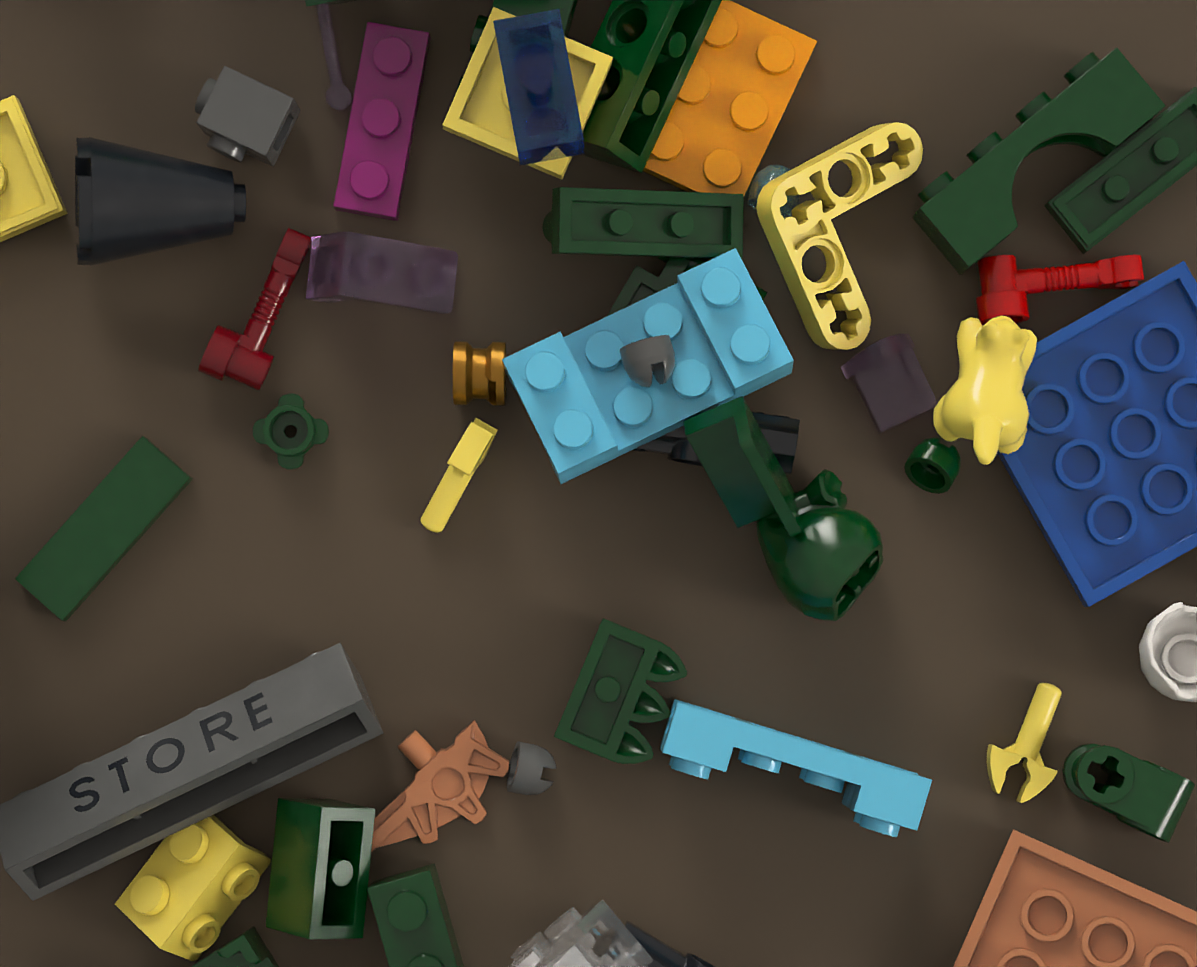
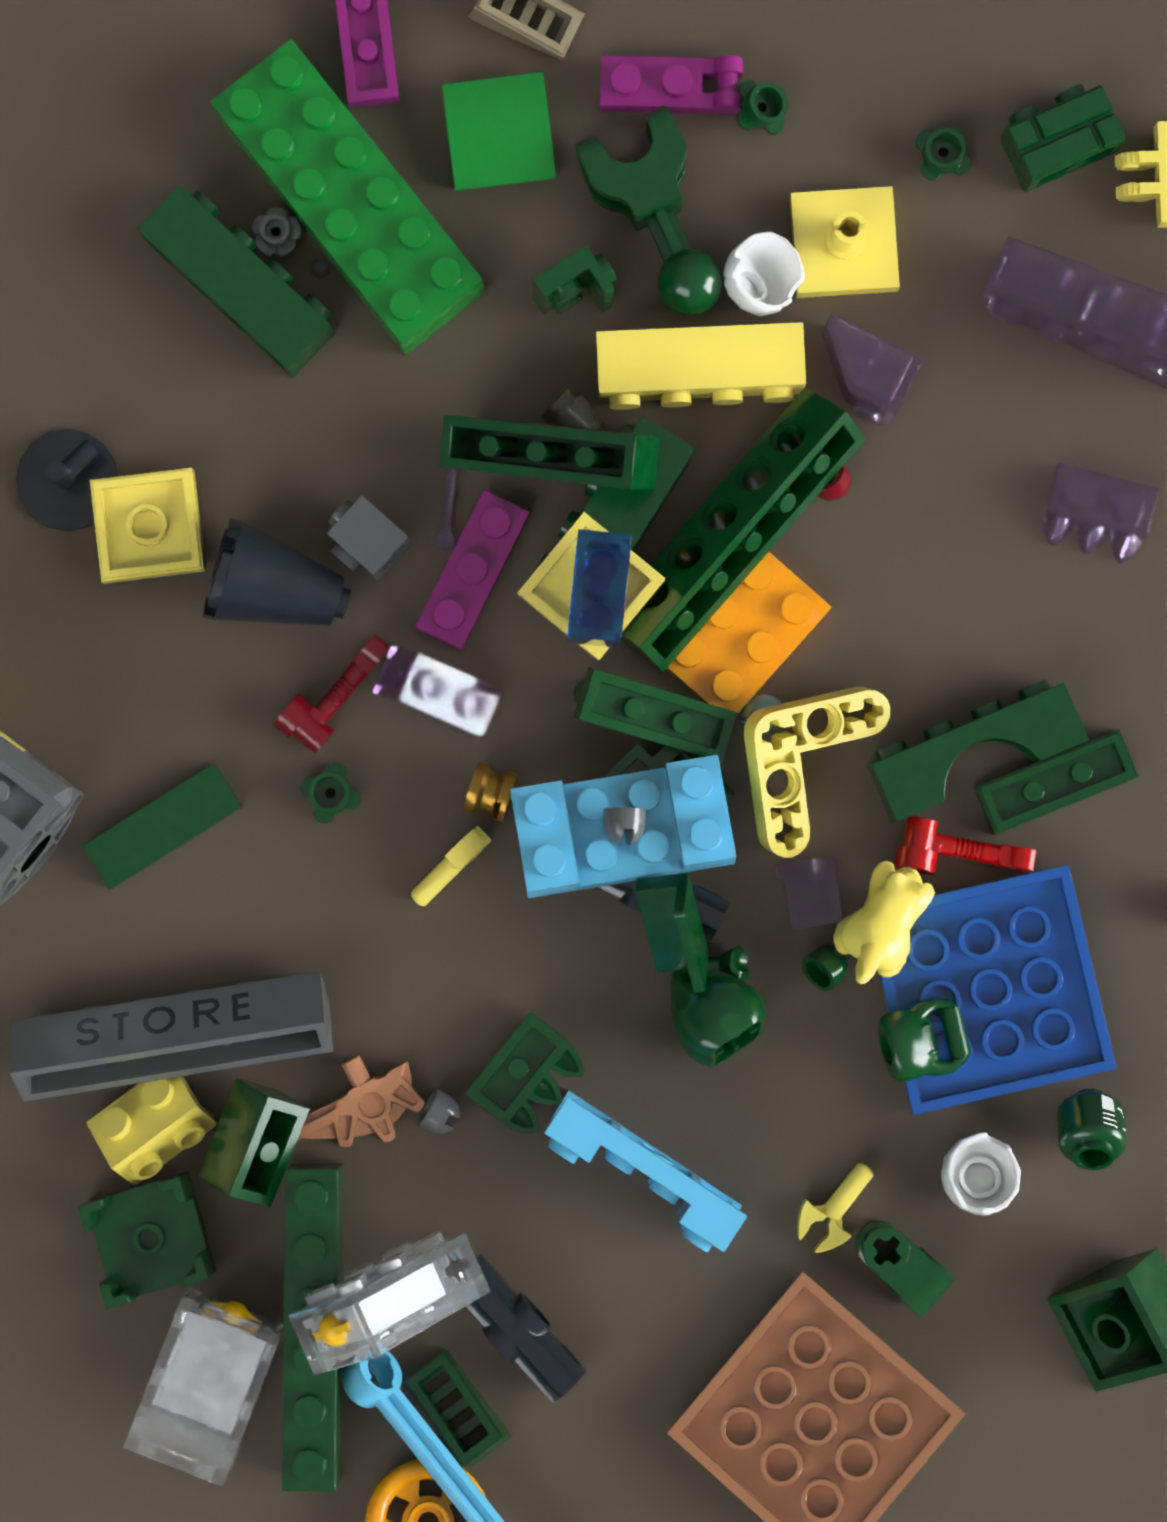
camera: 20 degrees right, 0 degrees up
(1060, 522) = (909, 1041): none -> dark green piece

